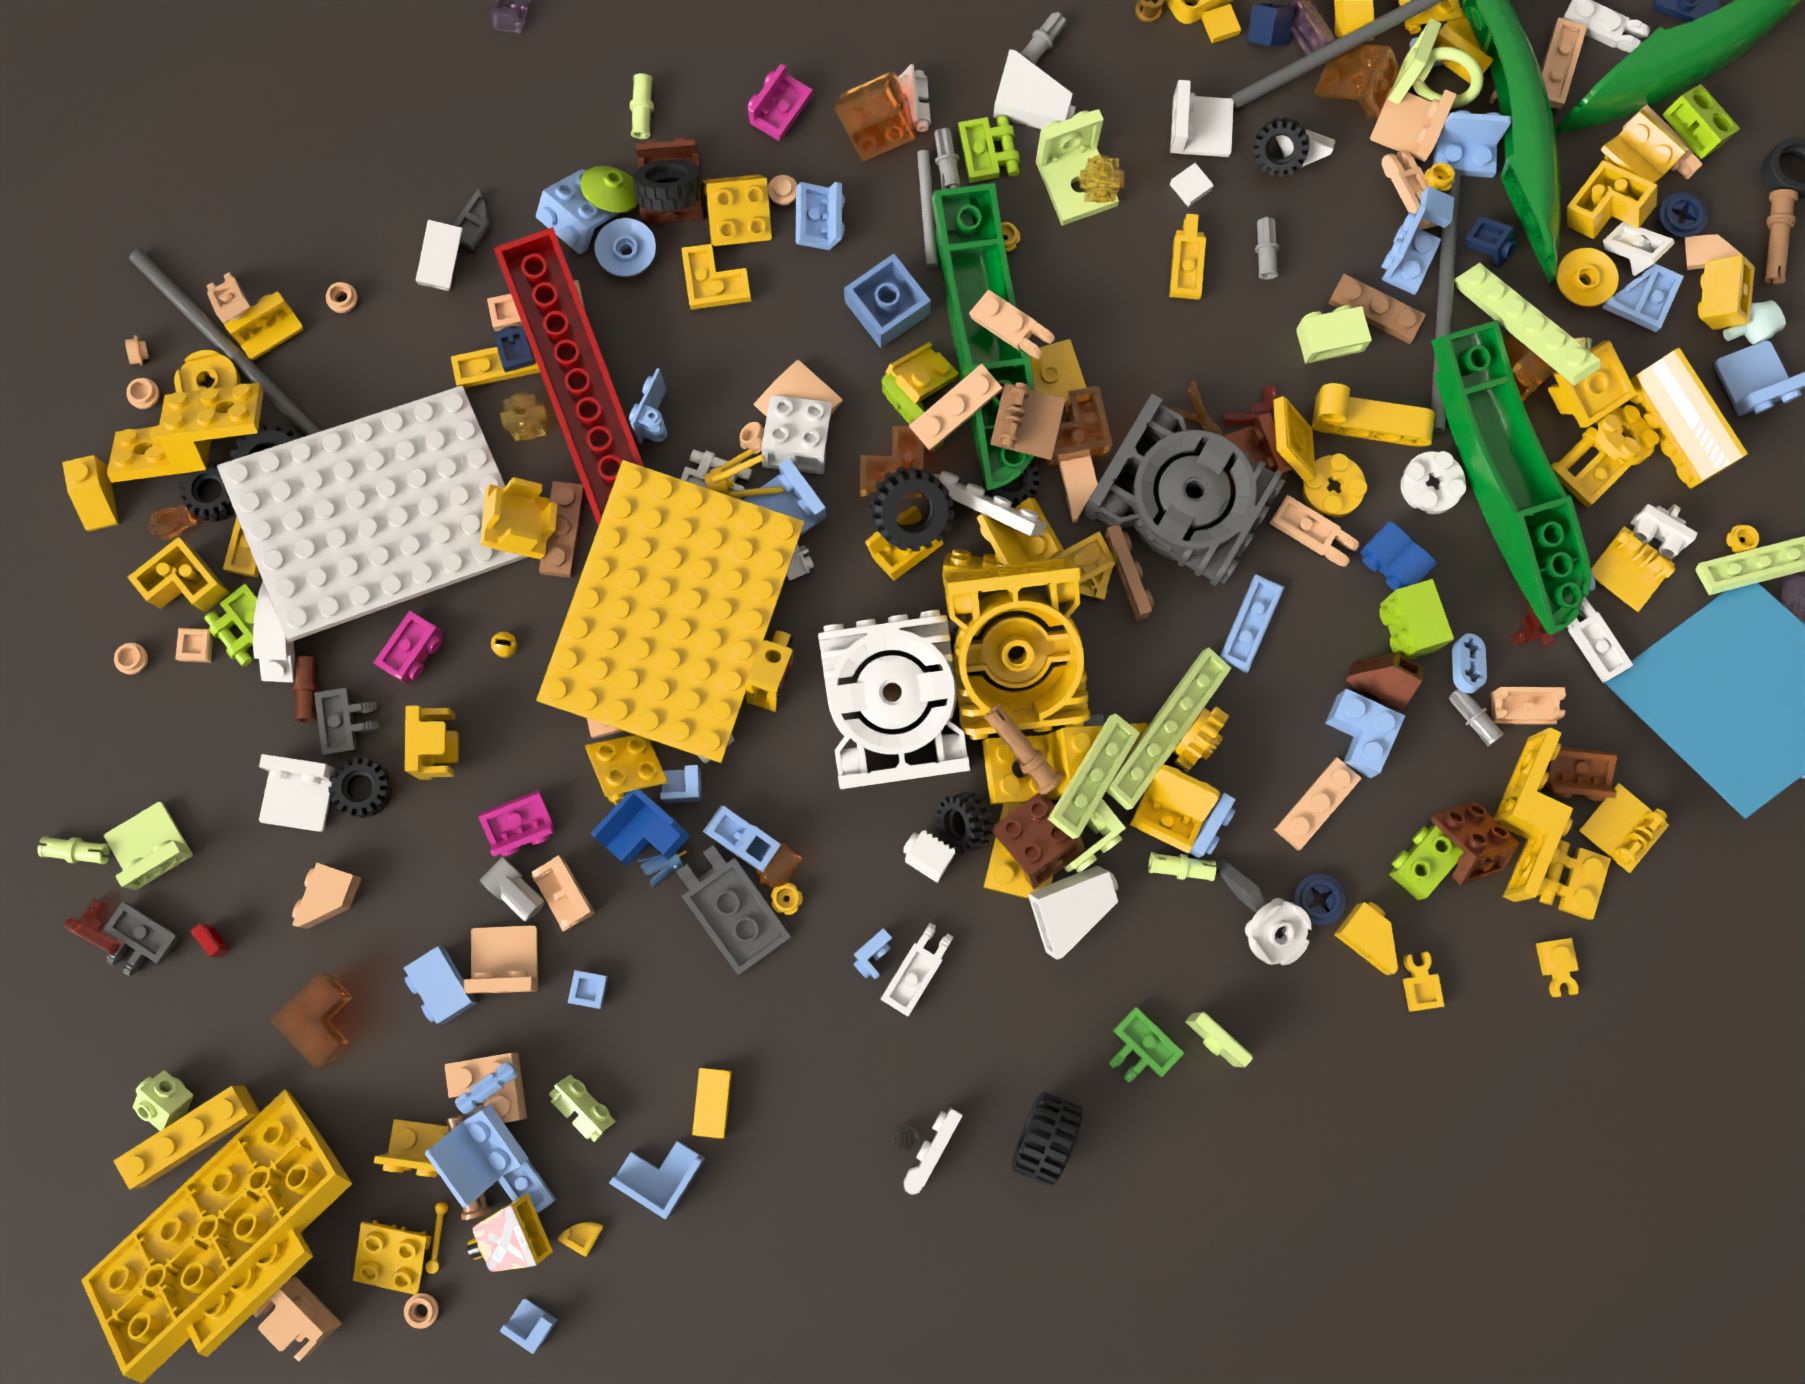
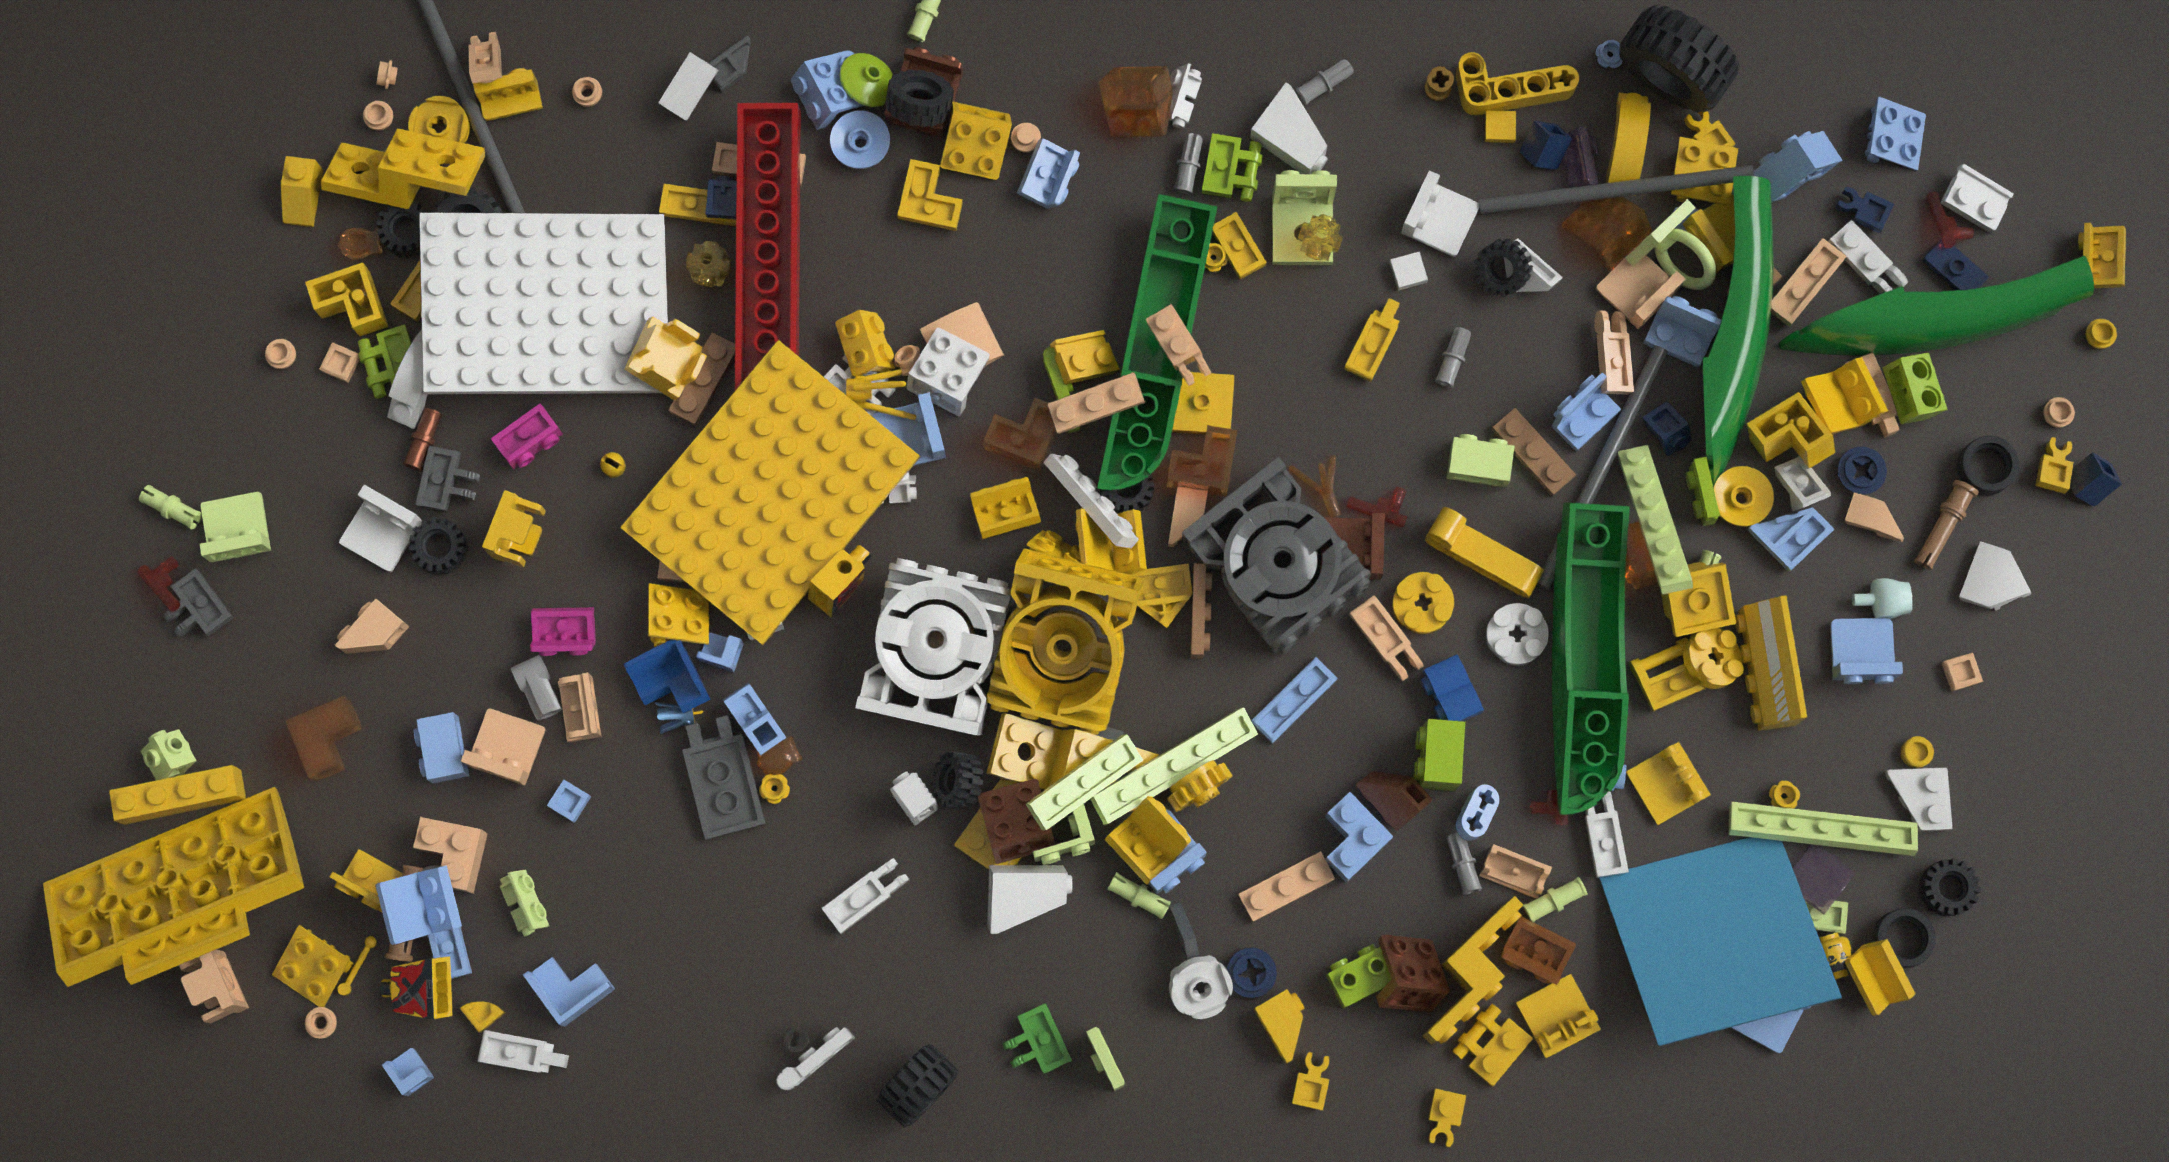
camera: 25 degrees right, 0 degrees up
(210, 940) = (259, 631): red tile -> none
(486, 1087) = (448, 850): light blue axle -> none
(635, 1261) = (519, 1052): none -> white hinge
(645, 417) = (815, 307): light blue hinge -> none
(705, 436) = (865, 343): none -> yellow bracket
(712, 1103) = (639, 942): yellow slope -> none
(778, 103) = (1053, 54): dark pink bracket -> none
(875, 947) = (835, 861): light blue bracket -> none
(887, 300) = (1078, 278): medium blue brick -> none
(927, 209) = (1157, 188): light grey bar -> none
(932, 523) = (1015, 504): black tyre -> none
(1027, 421) = (1156, 439): medium nougat hinge -> none
(1029, 220) = (1238, 245): none -> yellow plate
(1031, 760) = (1036, 748): medium nougat pin -> none
(1294, 439) = (1398, 546): yellow plate -> none
(1438, 206) = (1625, 378): light blue tile -> none
(1440, 176) = (1647, 345): yellow plate -> none
(1552, 285) = (1700, 480): none -> lime plate
(1576, 717) = (1555, 899): none -> yellowish green pin
(1665, 527) = (1715, 756): white hips -> none
(1726, 292) = (1867, 559): yellow brick -> none

